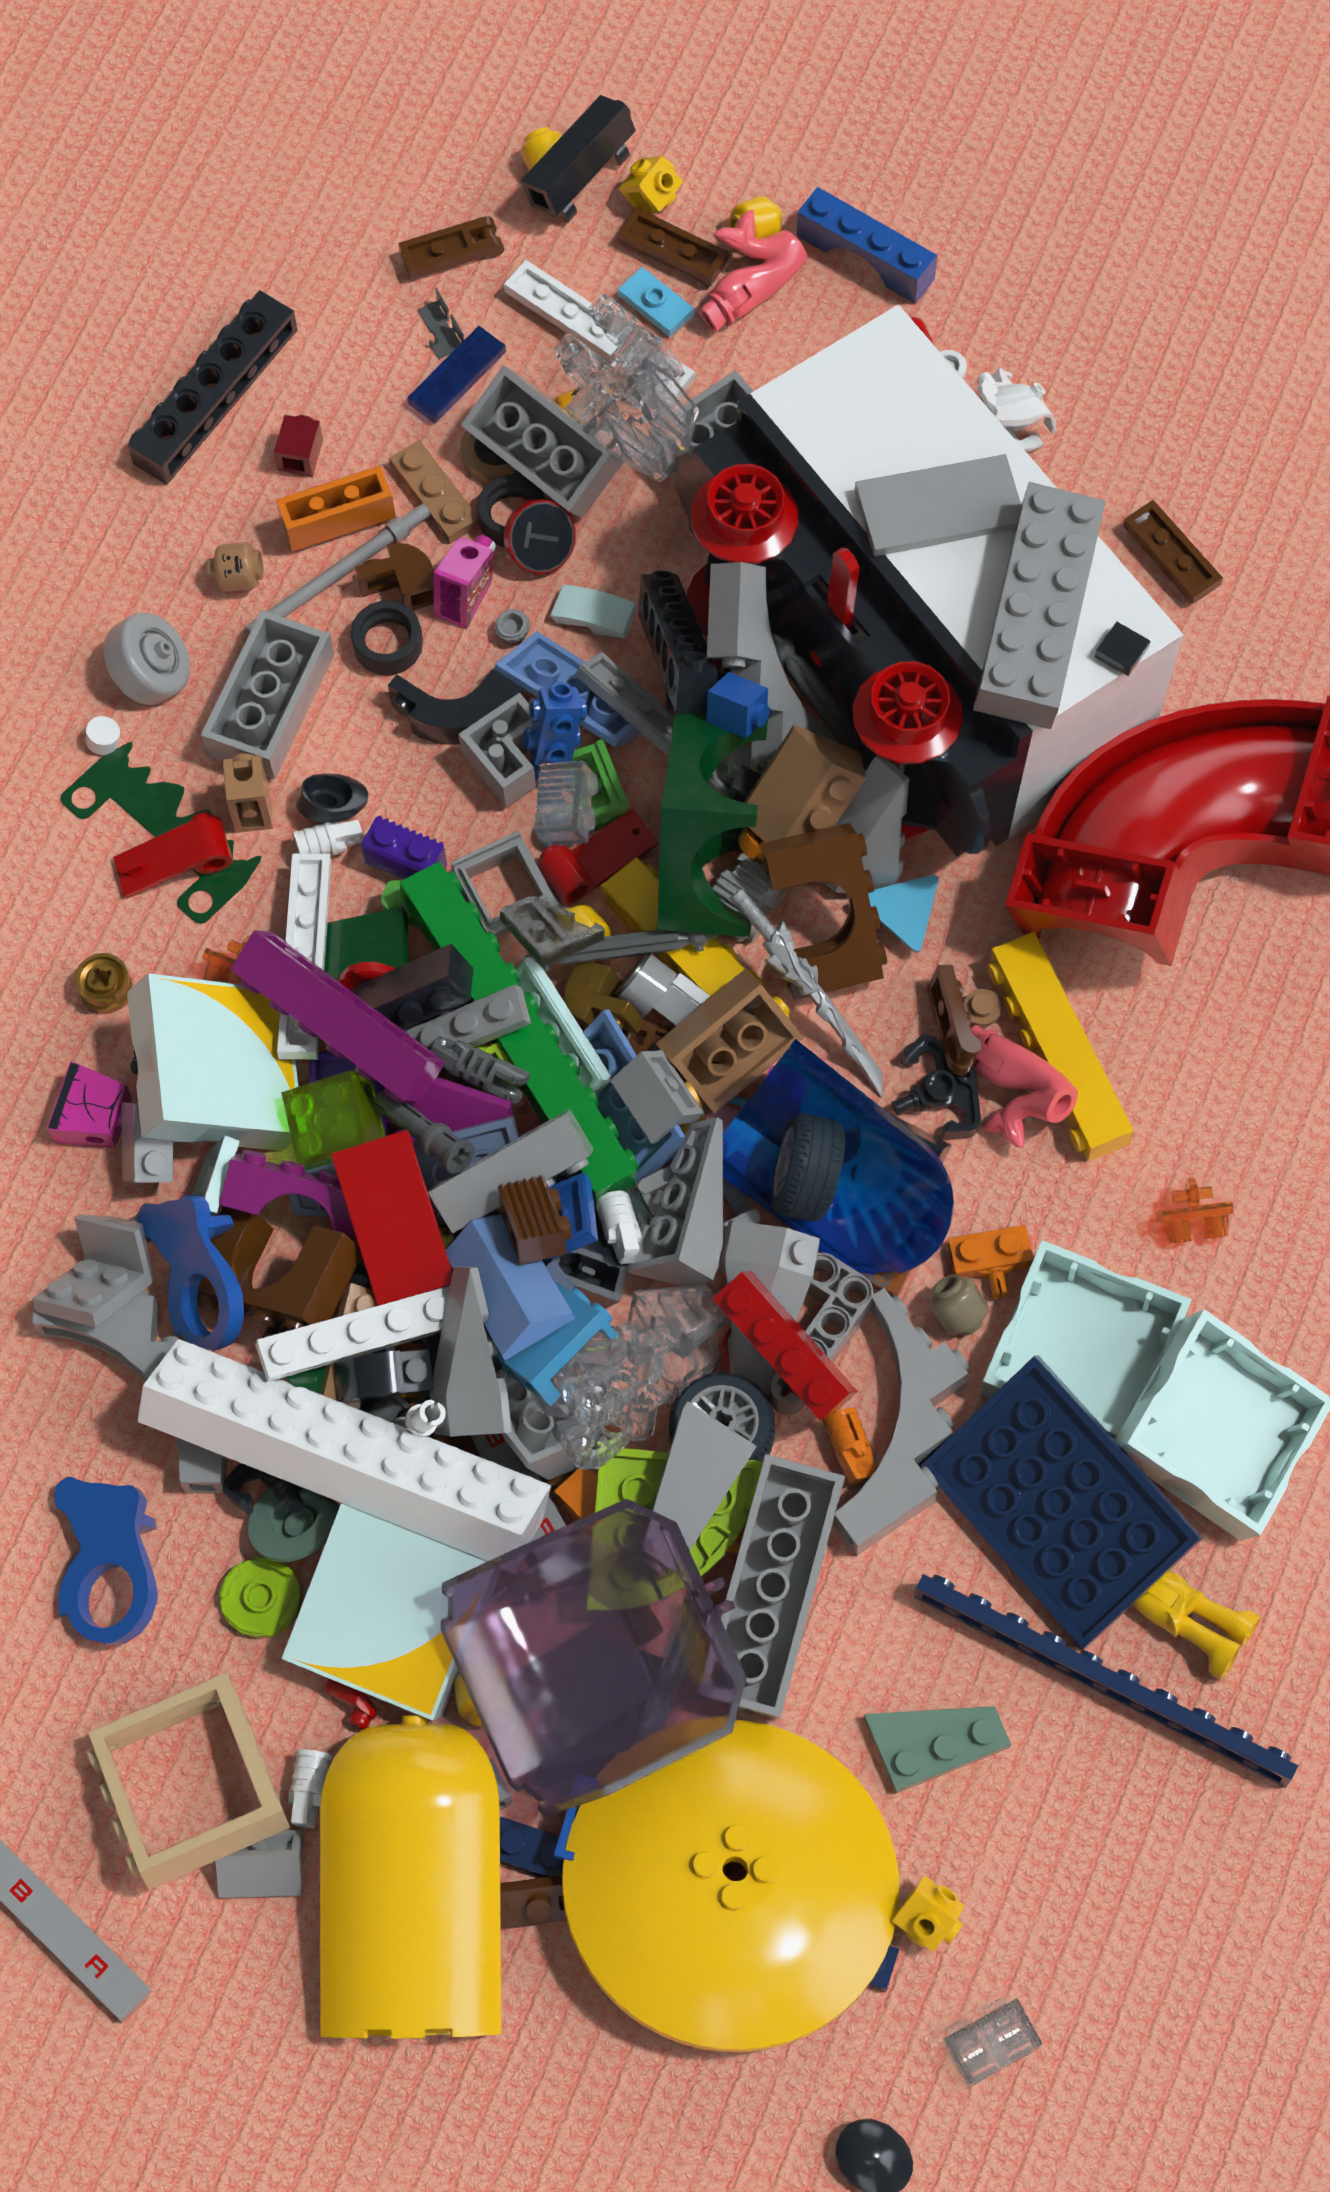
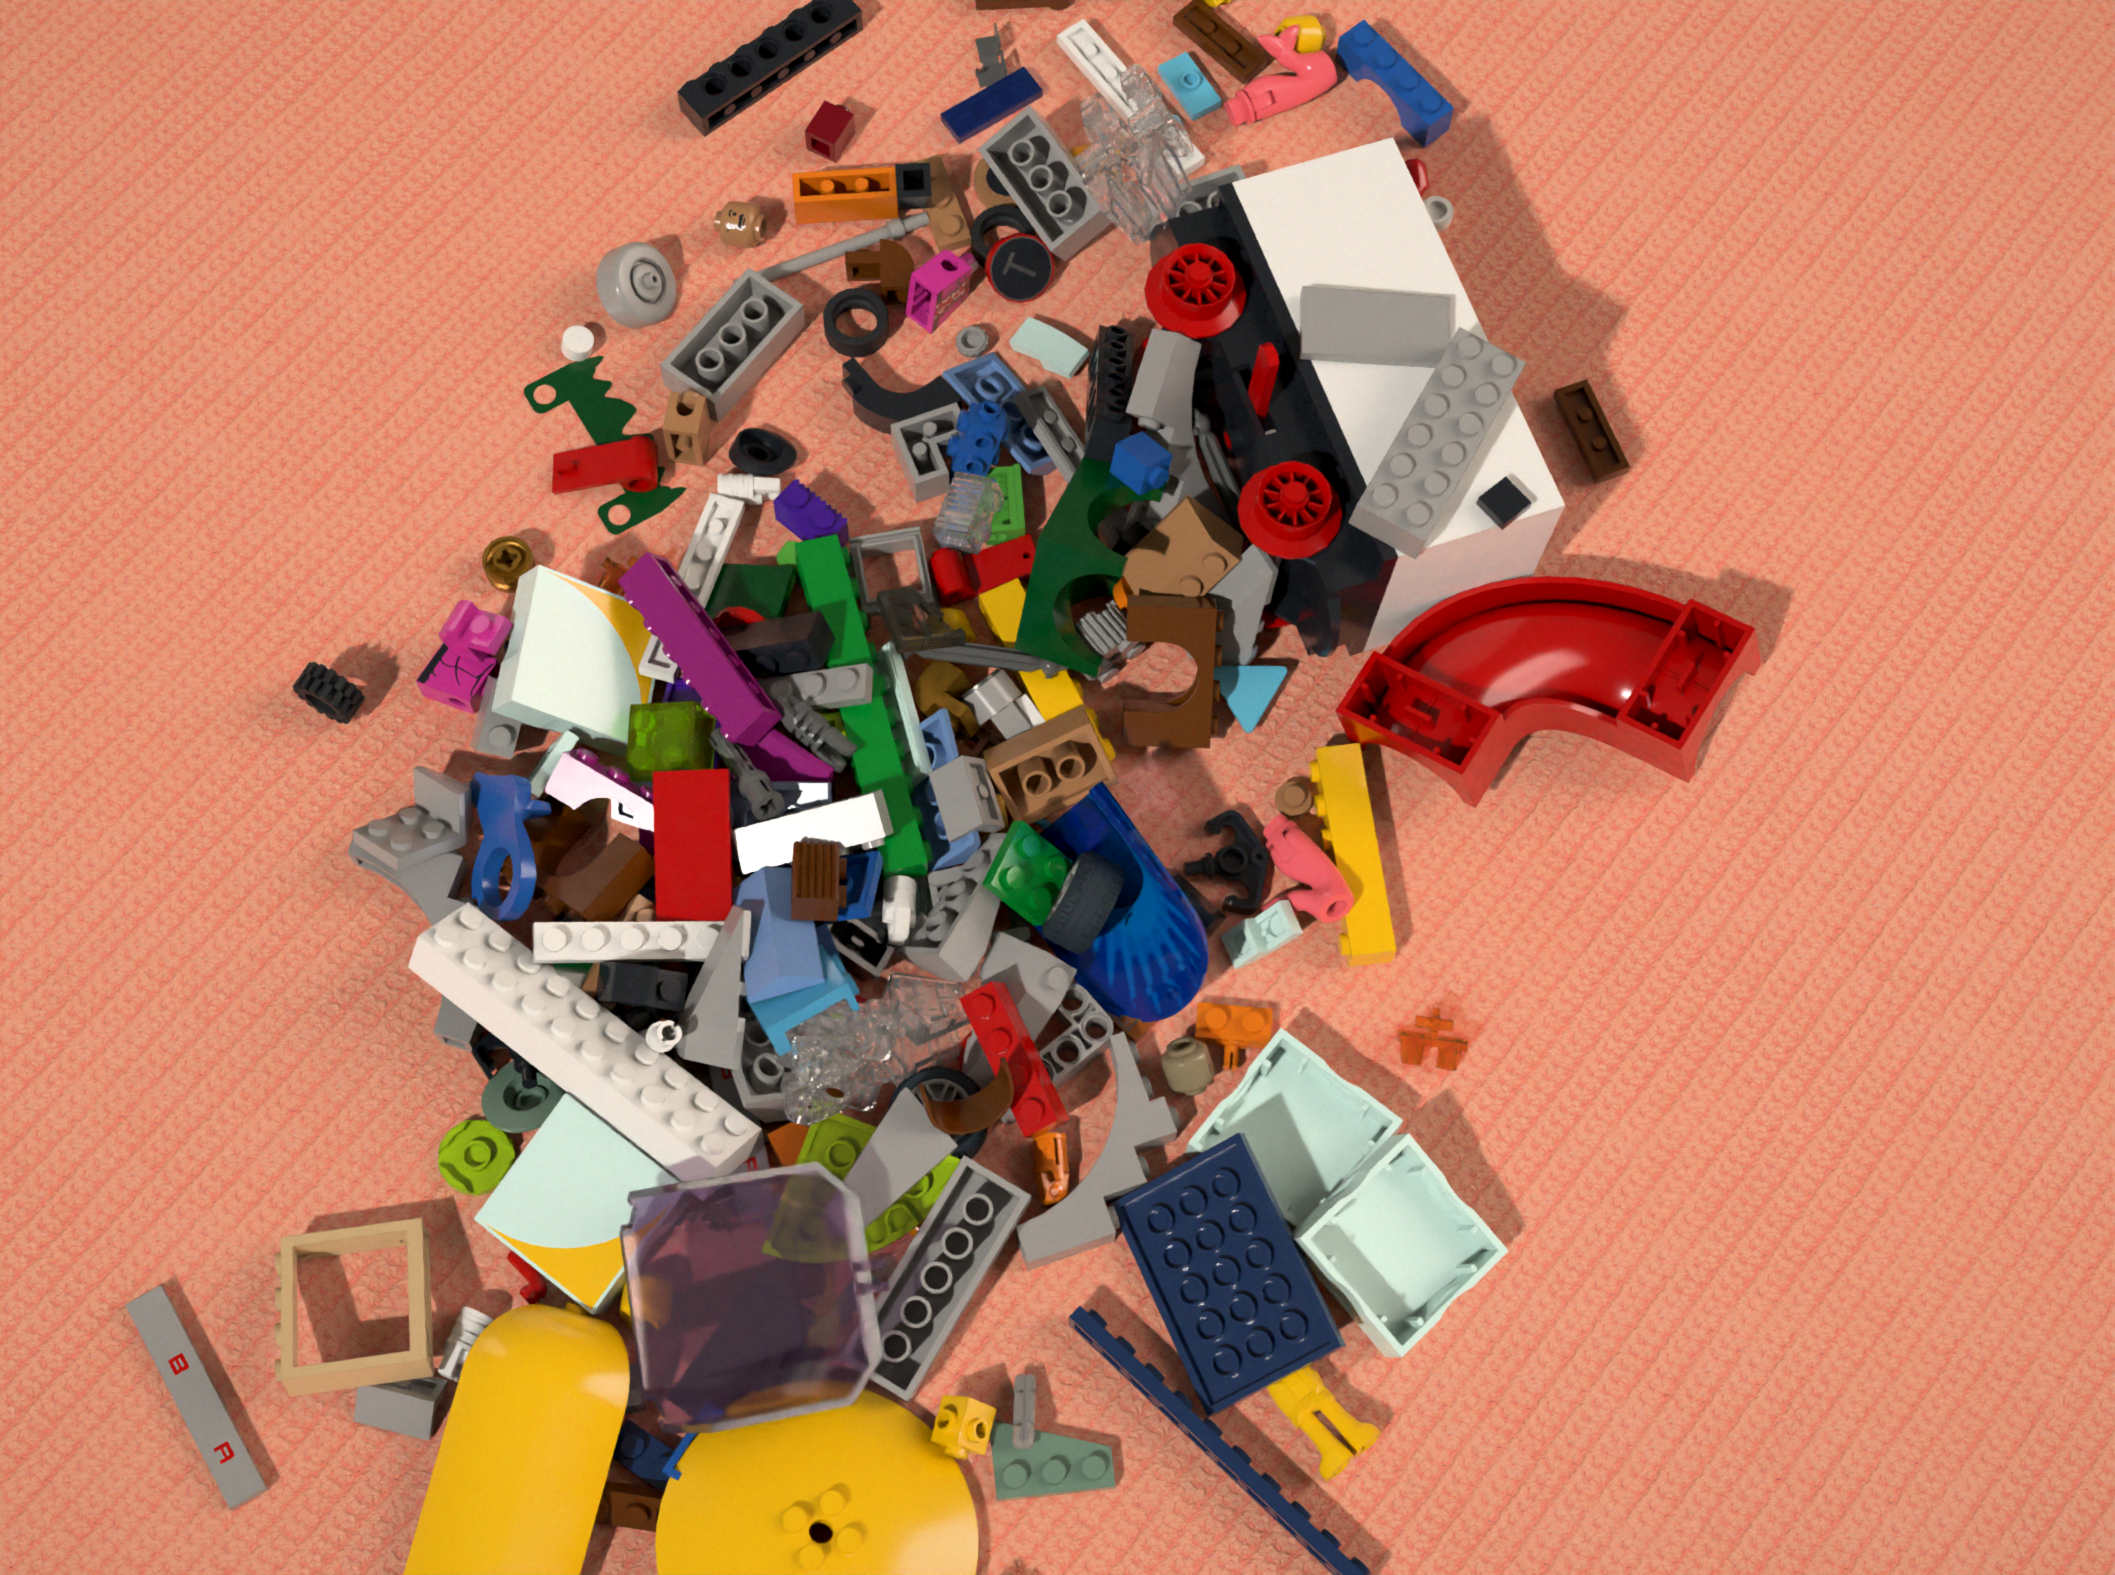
camera: 10 degrees right, 0 degrees up
(98, 1061) = (474, 632): none -> dark pink brick
(109, 1530) = (356, 1056): blue animal -> none
(406, 480) = (913, 186): none -> black brick
(742, 1153) = (1027, 873): none -> green plate
(763, 1406) = (975, 1111): none -> reddish brown piece
(799, 972) = (1136, 728): light grey sword -> none
(841, 1727) = (963, 1426): none -> yellow brick
(897, 1696) = (1024, 1411): none -> light grey axle
(952, 1020) = (1260, 804): reddish brown plate -> none
(992, 1152) = (1261, 935): none -> light aqua slope
(1016, 405) = (1483, 264): white helmet -> none

